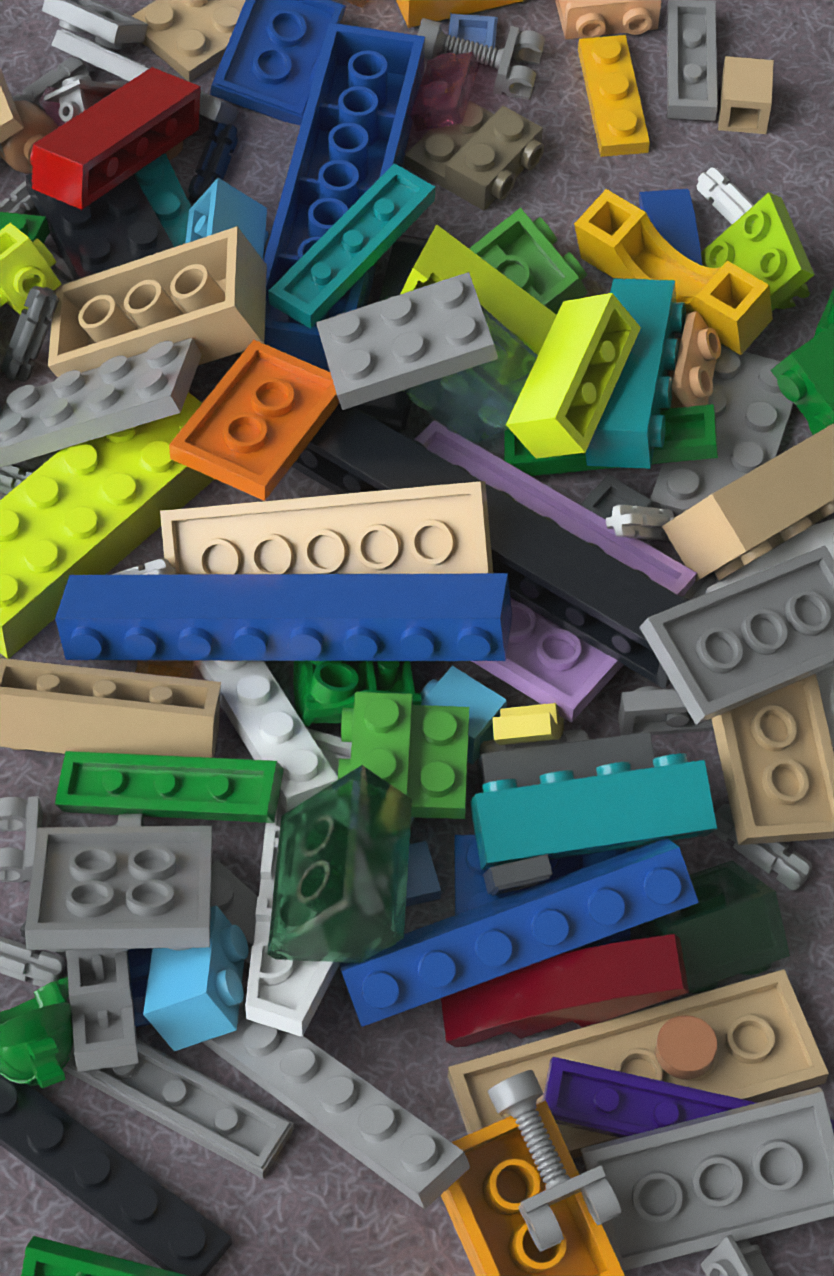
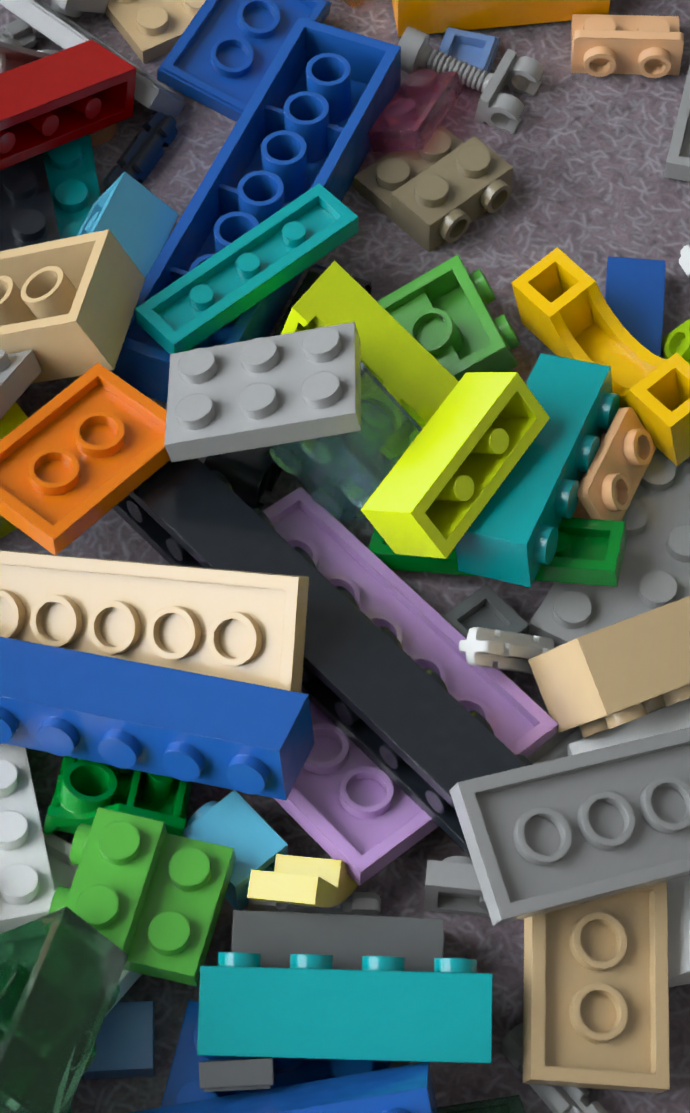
camera: 15 degrees right, 0 degrees up
(613, 96) = (608, 143): yellow plate -> none

